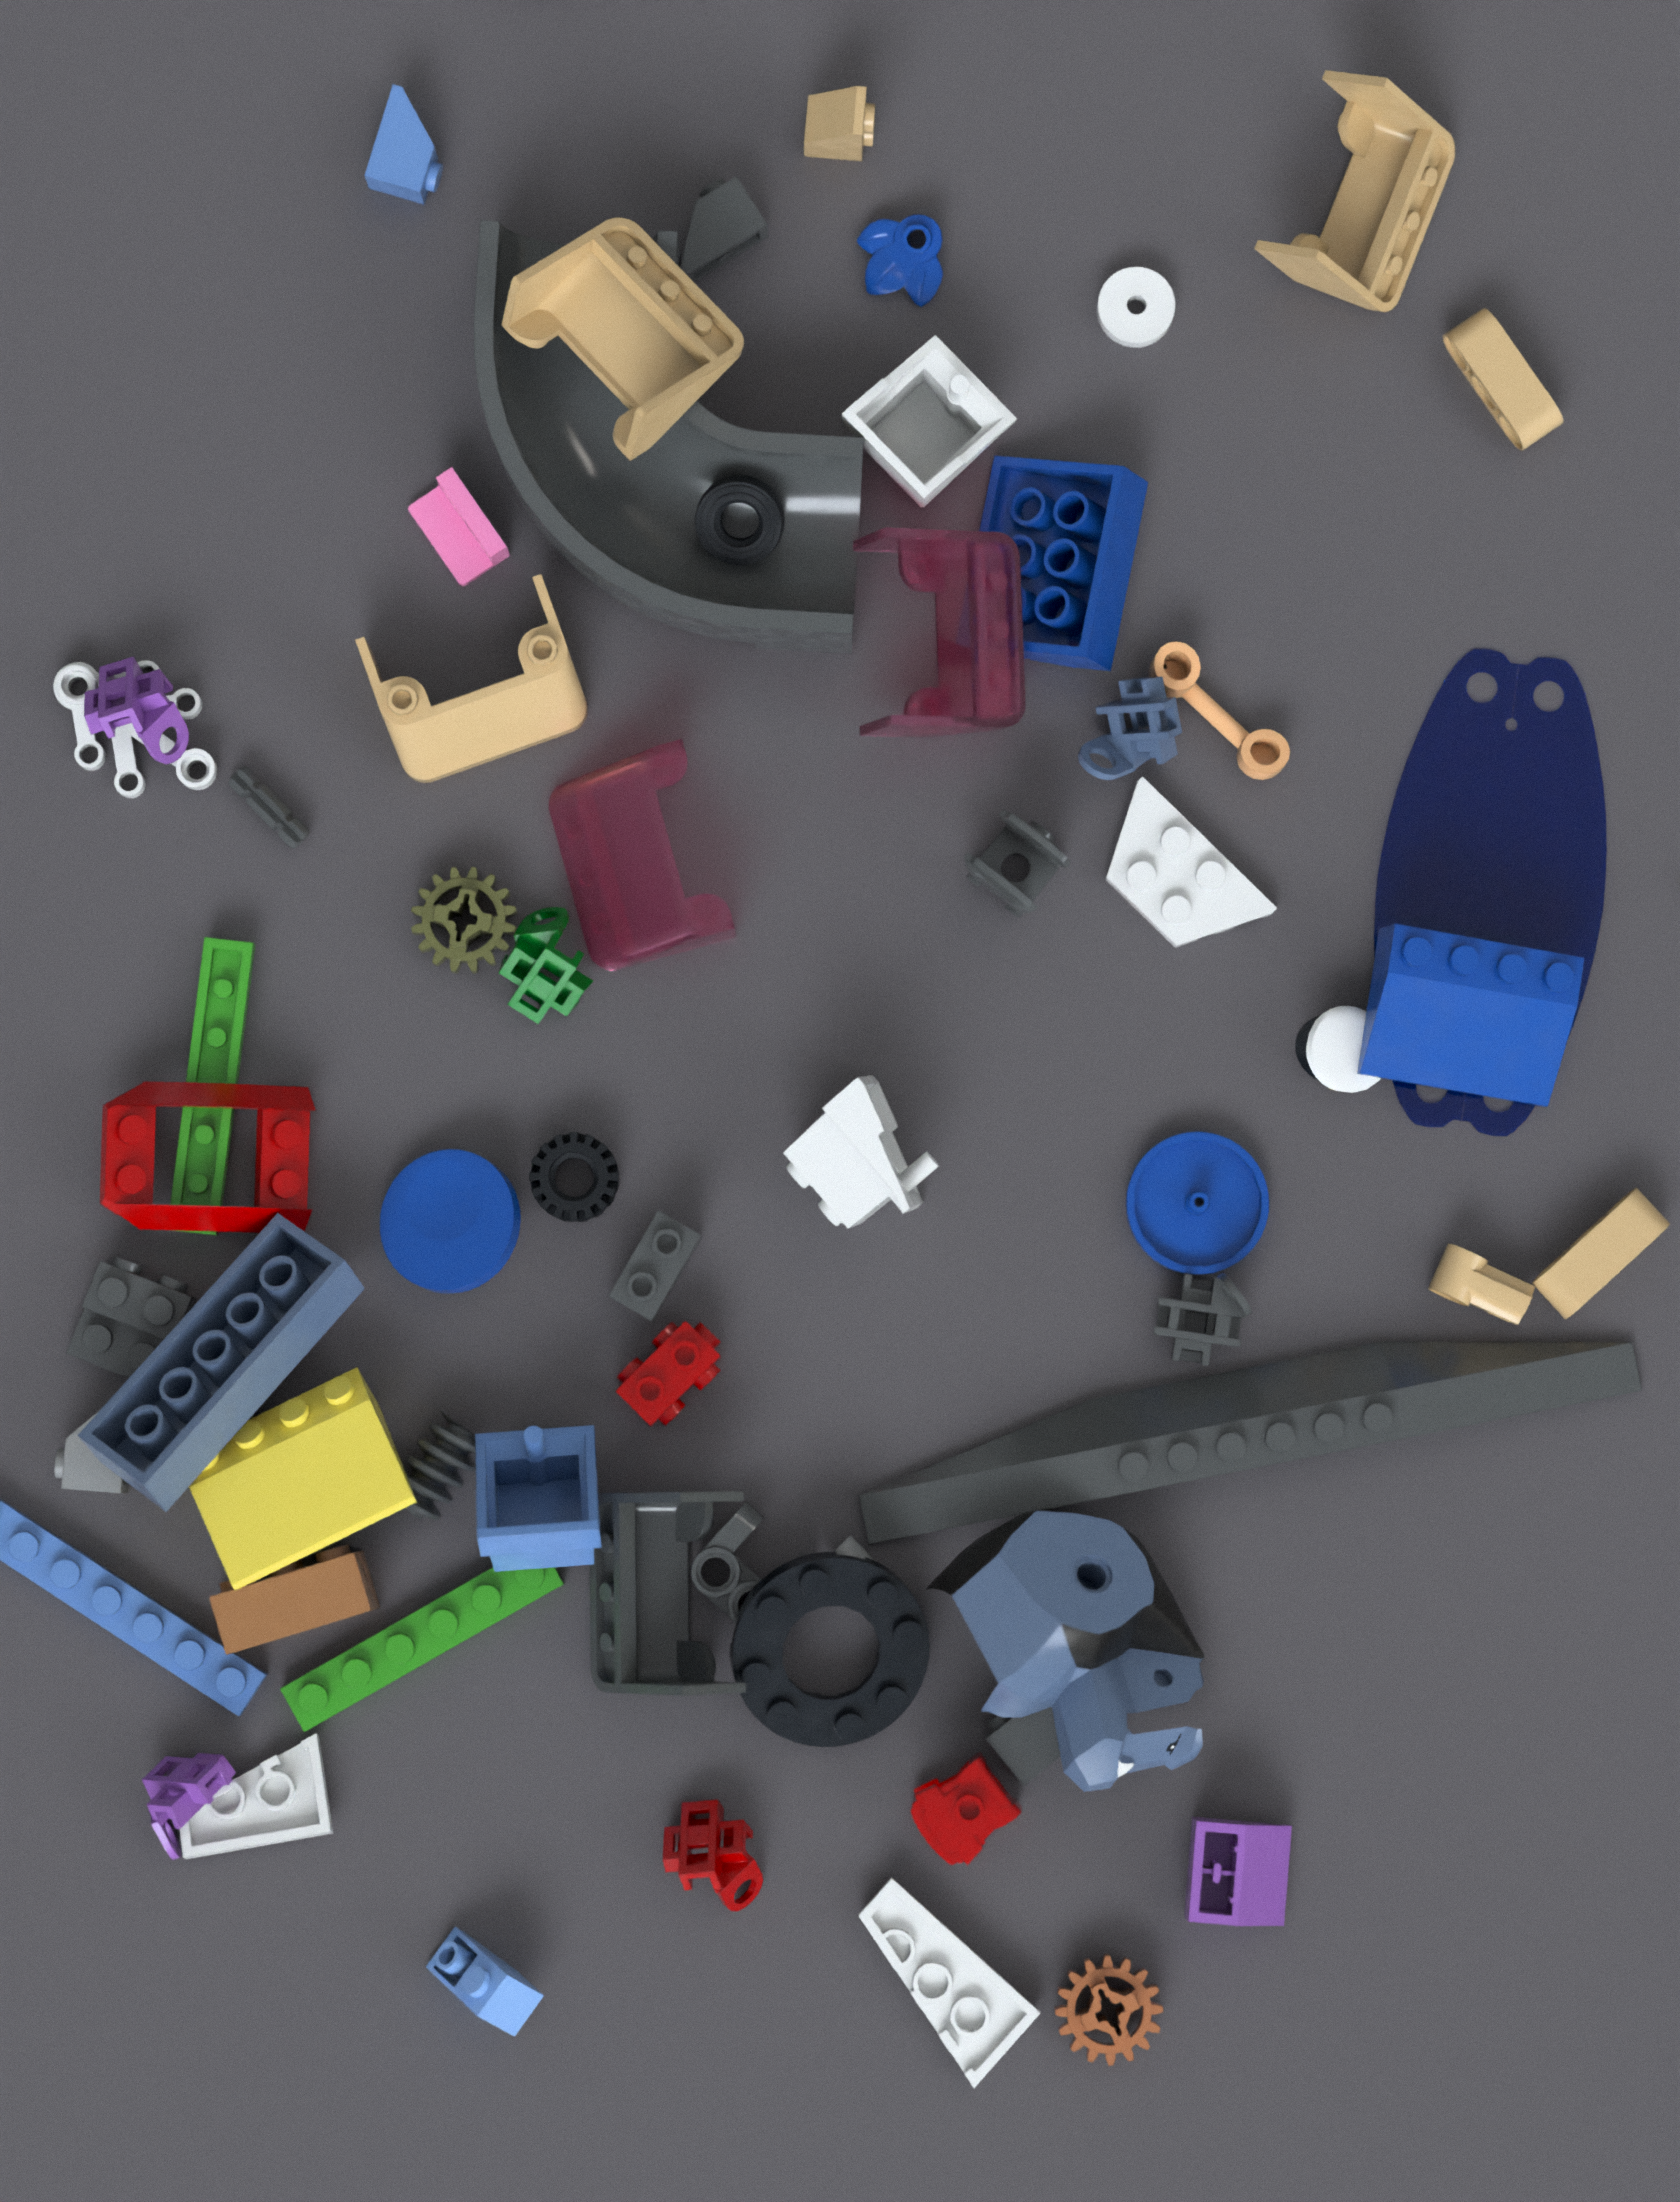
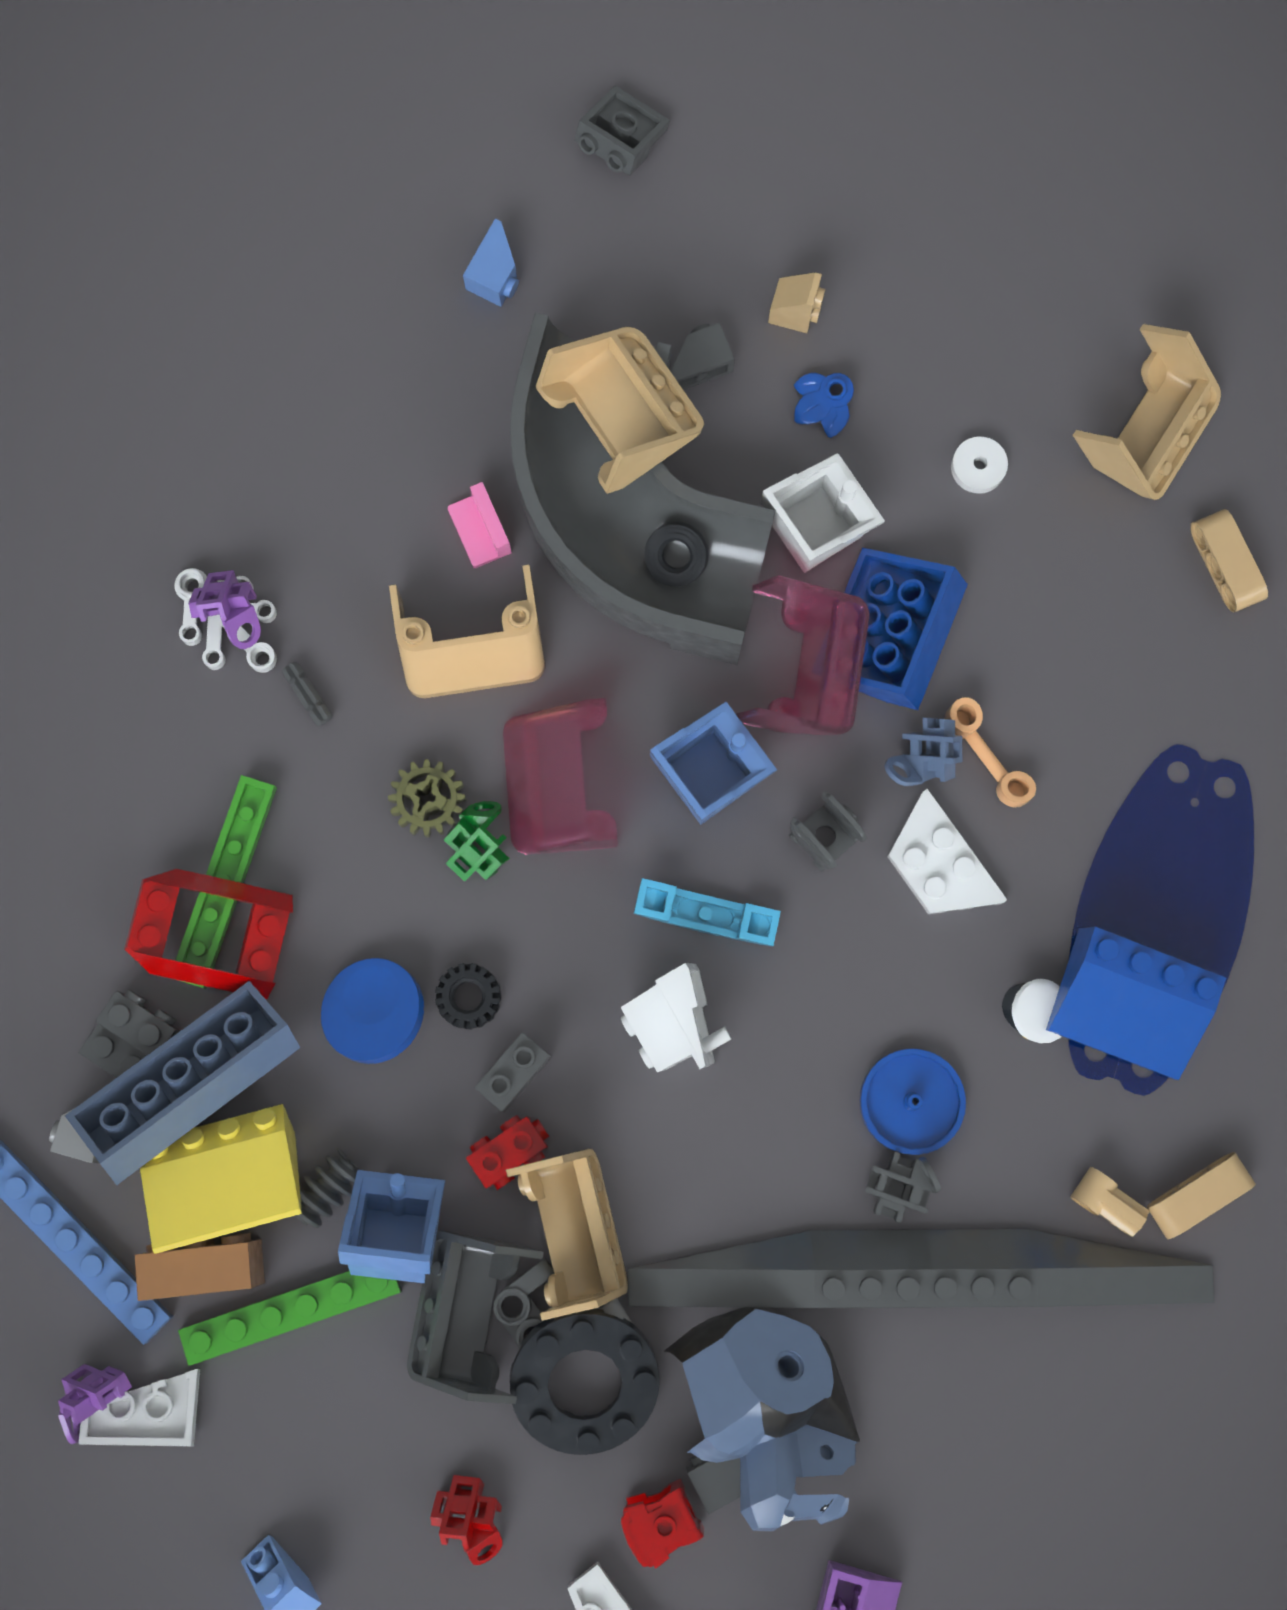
camera: 10 degrees right, 5 degrees down
(780, 1455) = (577, 1232): none -> tan windscreen
(843, 799) = (712, 762): none -> medium blue piece
(874, 1004) = (706, 913): none -> medium azure slope

